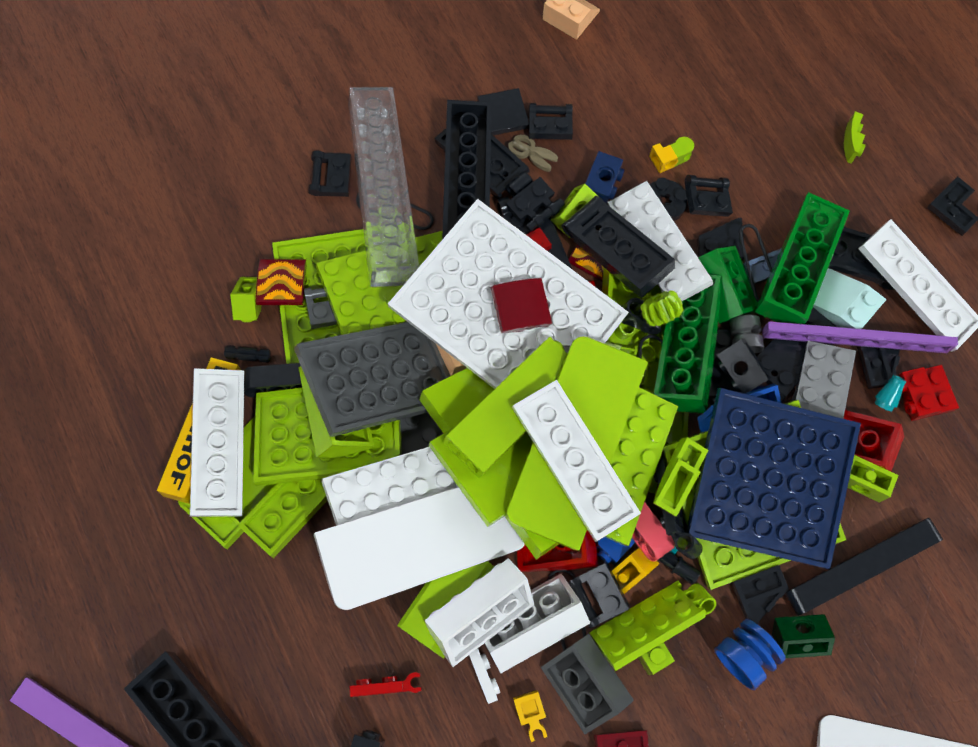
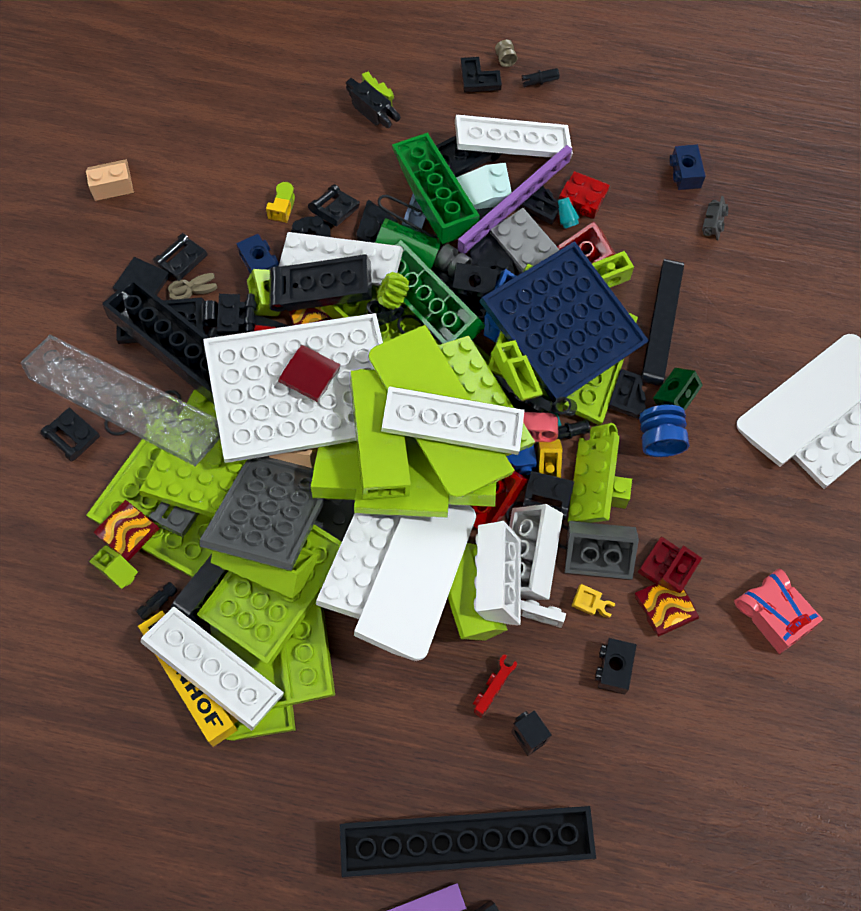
camera: 50 degrees left, 5 degrees down
(835, 143) = (371, 103): none -> black hinge

